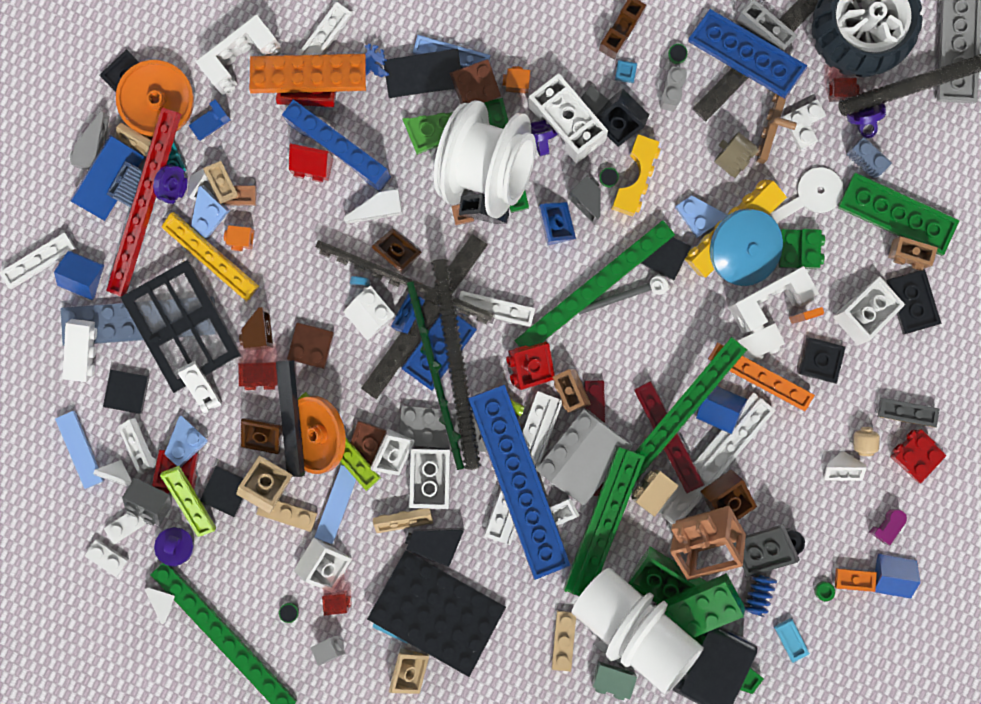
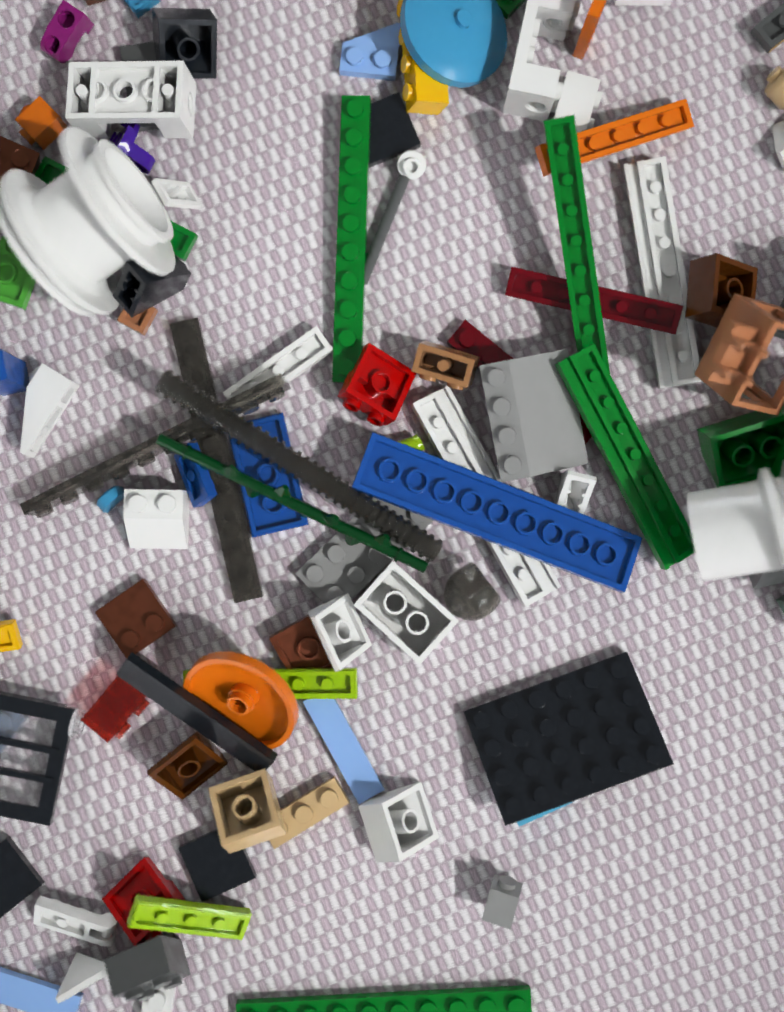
camera: 50 degrees left, 0 degrees up
(174, 546) = (228, 978): dark purple tile -> none
(184, 442) = (118, 862): light blue wing -> none
(199, 386) = (68, 789): white plate -> none
(257, 331) = (62, 665): reddish brown slope -> none
(289, 612) = (420, 908): black tile -> none
(336, 603) = (456, 844): clear red brick -> none
(396, 250) = (113, 427): reddish brown slope -> none
(403, 520) = (426, 685): tan plate -> none
(409, 672) = (606, 828): tan slope -> none
(435, 544) = (486, 670): black slope -> none
(466, 502) = (470, 594): none -> clear smoke piece
(540, 181) = (176, 193): none -> white slope
(556, 222) = (240, 219): blue slope -> none
(563, 641) = (721, 619): tan plate -> none
(573, 52) = (65, 32): none -> magenta leg
(587, 198) = (243, 158): dark grey slope -> none
(608, 177) = (241, 117): black tile -> none
(643, 153) = (249, 57): yellow arch -> none
(654, 492) = (642, 369): tan brick -> none
(722, 409) = (615, 215): blue slope -> none
(821, 360) = (652, 60): black tile -> none

